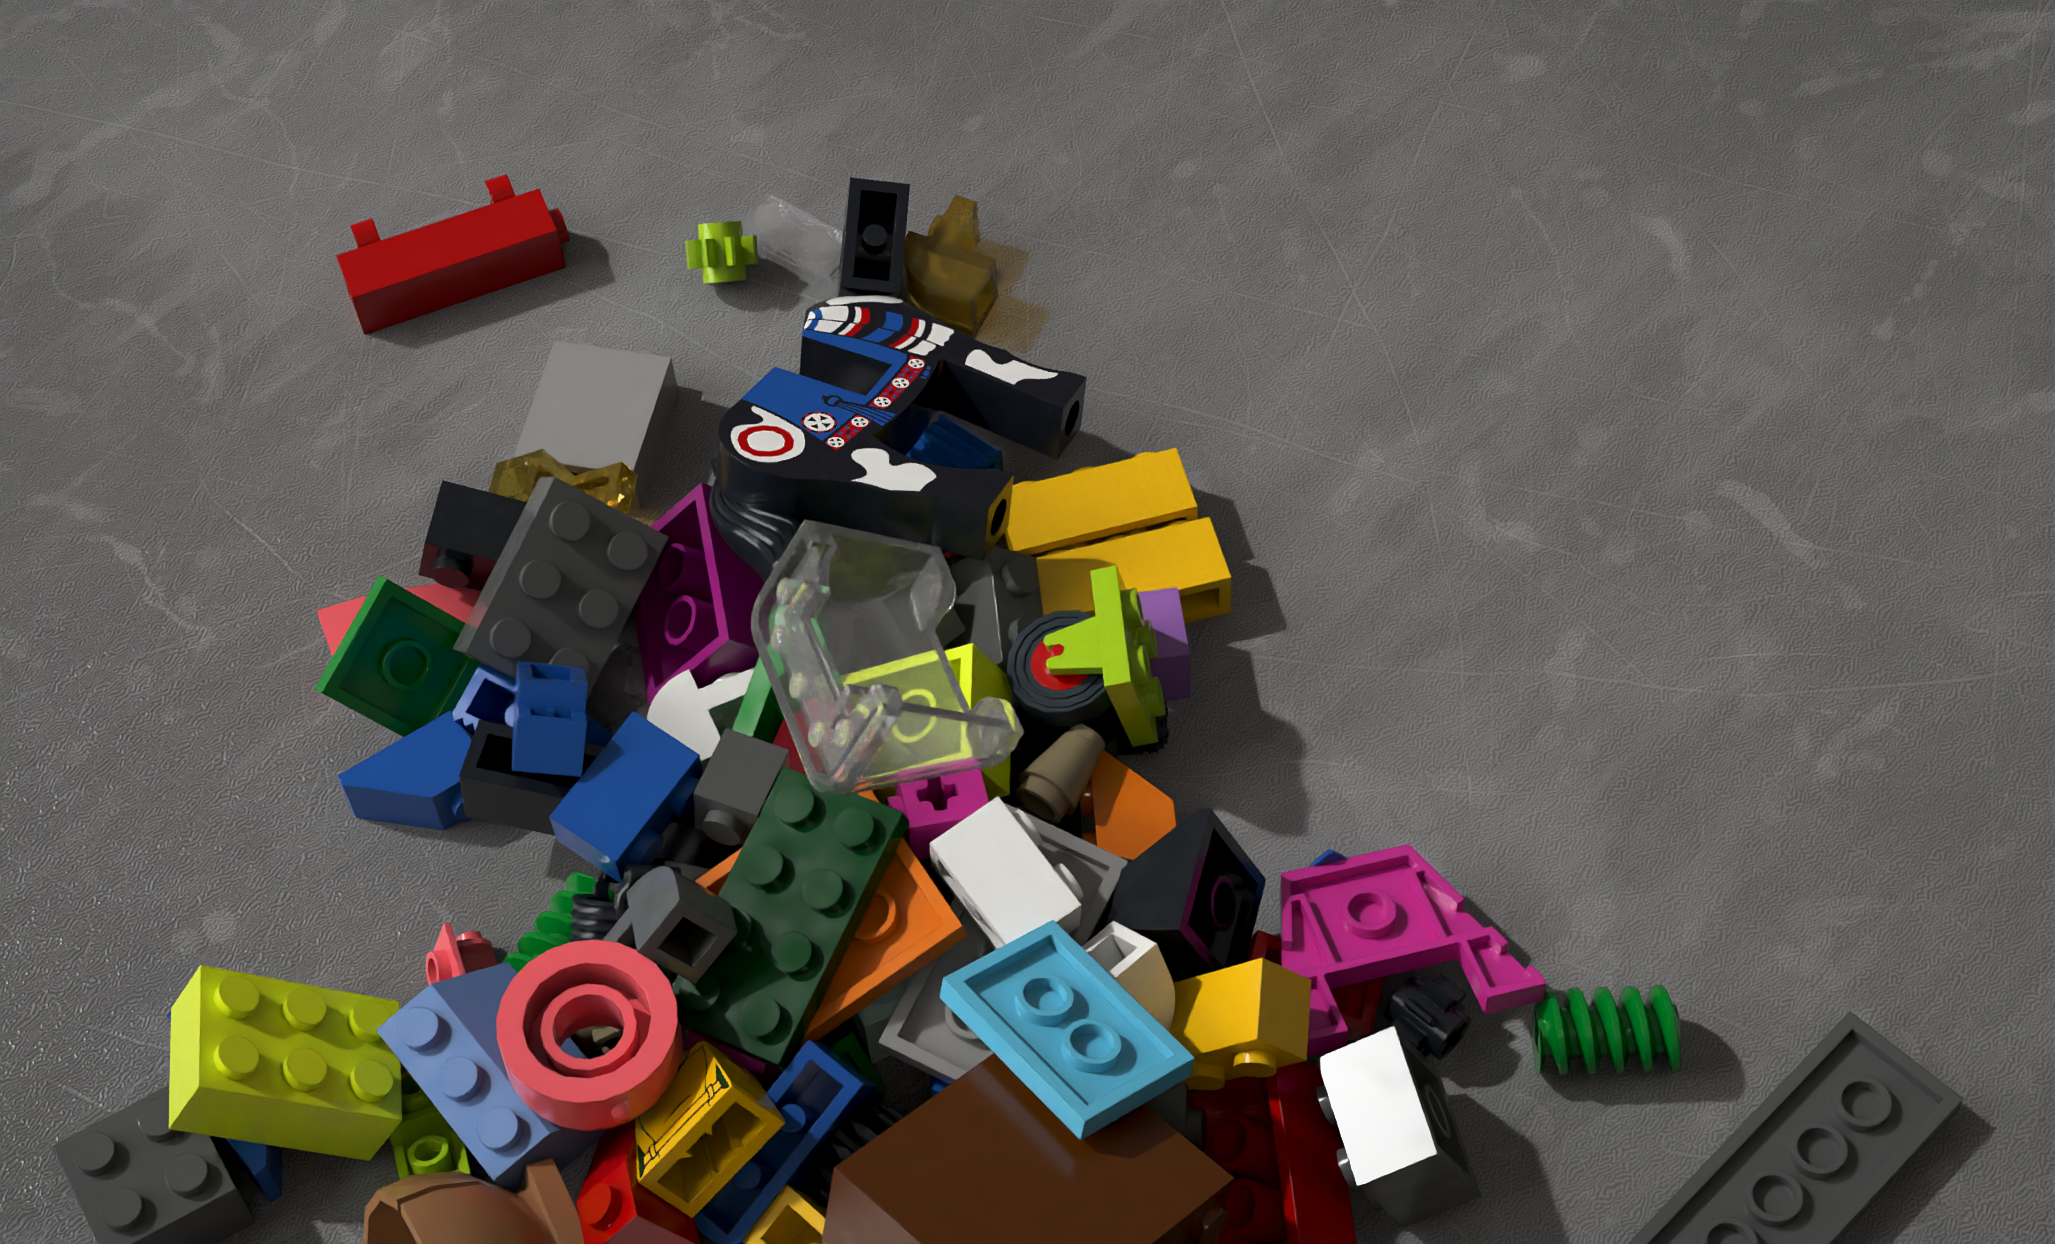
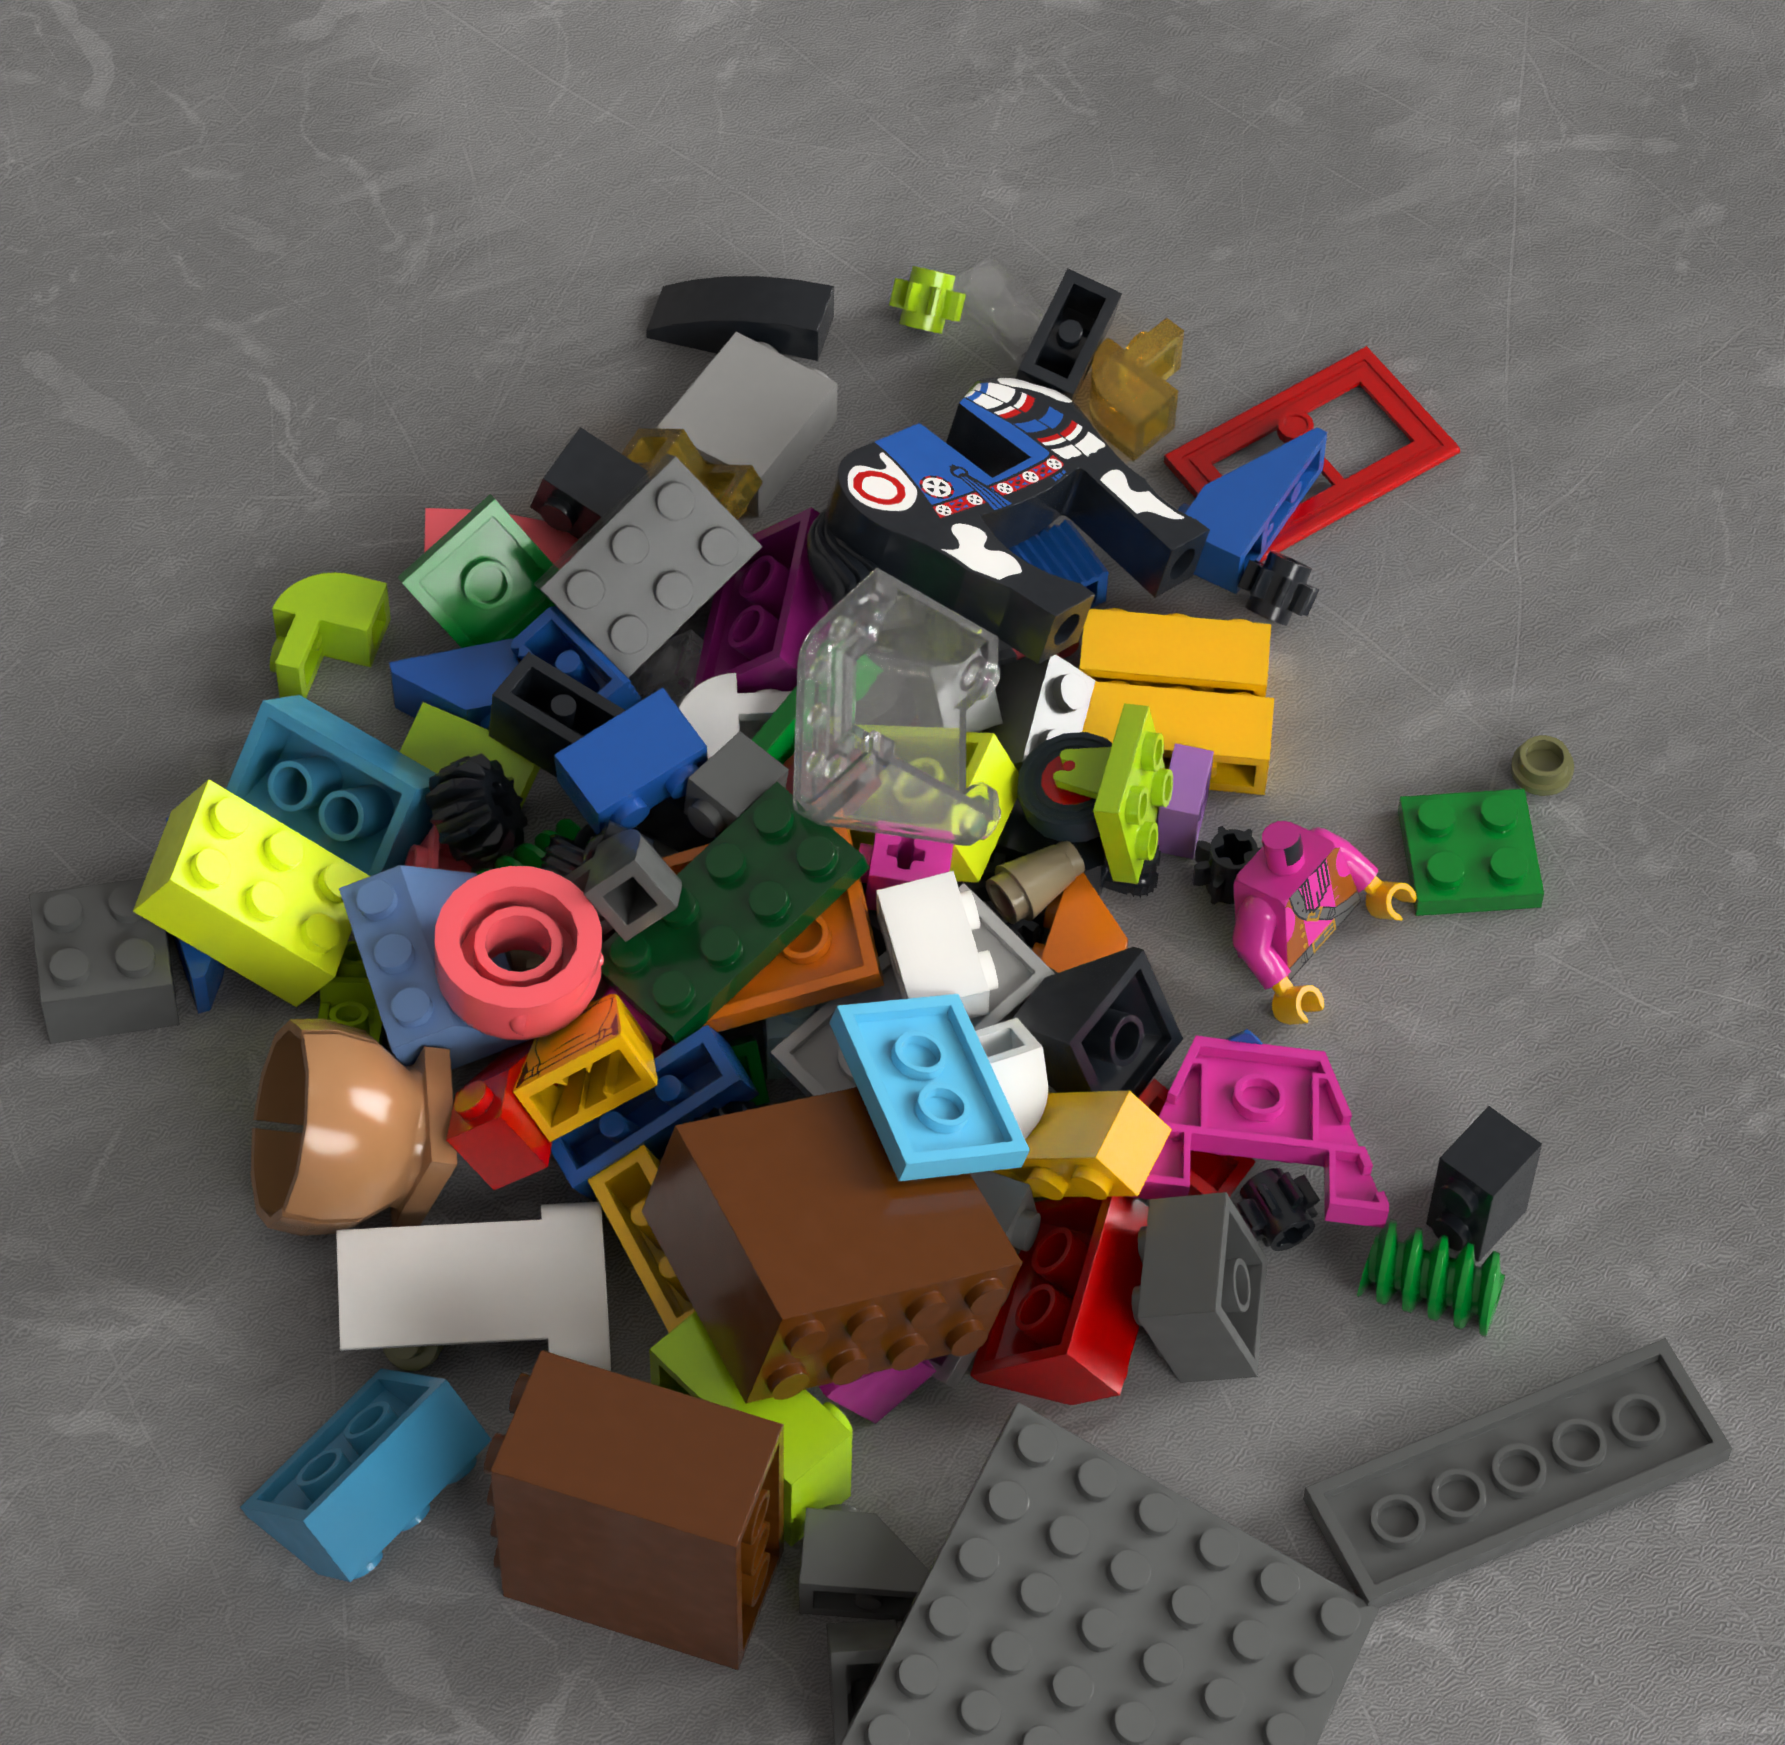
camera: 15 degrees right, 0 degrees up
(258, 751) = (326, 617): none -> lime brick
(328, 920) = (333, 784): none -> dark azure slope
(449, 845) = (443, 738): none -> lime slope
(452, 258) = (674, 222): red brick -> none
(481, 895) = (476, 810): none -> black gear
(549, 719) = (588, 670): blue slope -> none
(577, 309) = (771, 310): none -> black slope
(1099, 248) = (1289, 416): none -> red door
(1108, 344) = (1253, 506): none -> blue slope
(1164, 411) = (1278, 588): none -> black gear
(1234, 692) = (1222, 861): none -> black gear
(1311, 707) = (1294, 901): none -> dark pink torso
(1447, 600) = (1470, 852): none -> green plate
(1478, 495) = (1542, 766): none -> olive plate
(1616, 920) = (1483, 1183): none -> black brick

